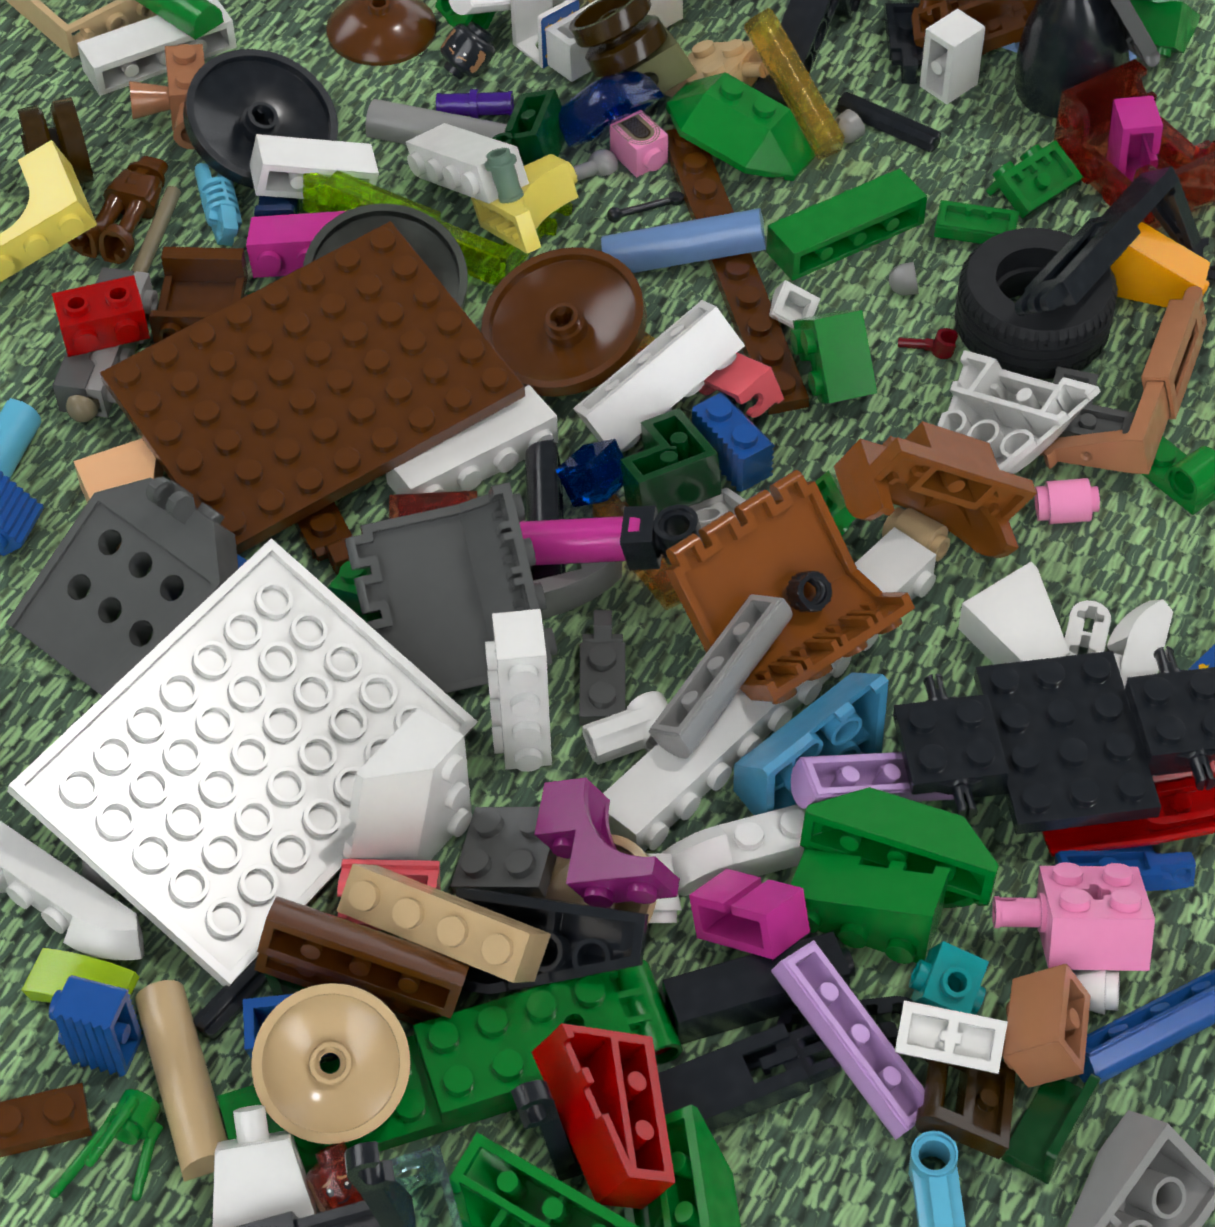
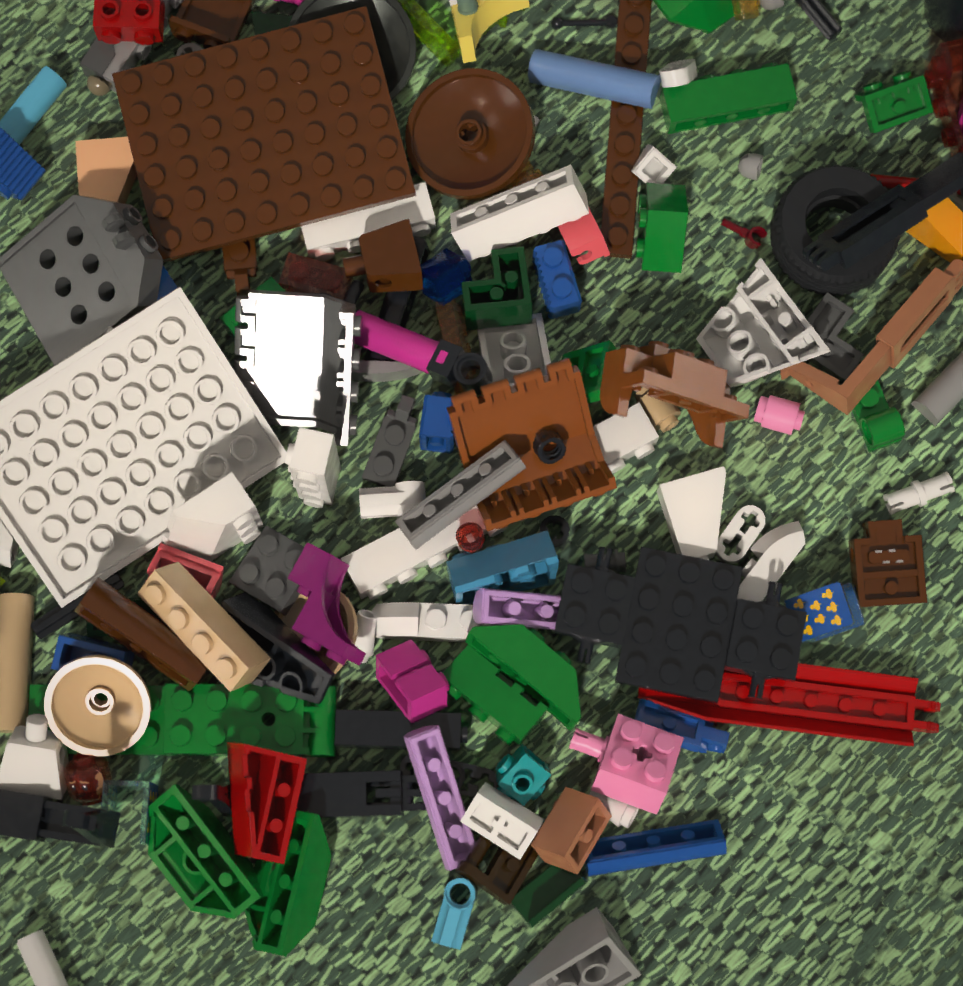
camera: 15 degrees right, 25 degrees up
(521, 454) = (387, 259): none -> reddish brown torso
(655, 620) = (435, 425): none -> blue brick
(754, 721) = (477, 533): none -> clear red hinge
(779, 206) = (678, 73): none -> white beam
(972, 222) = (829, 130): green plate -> none

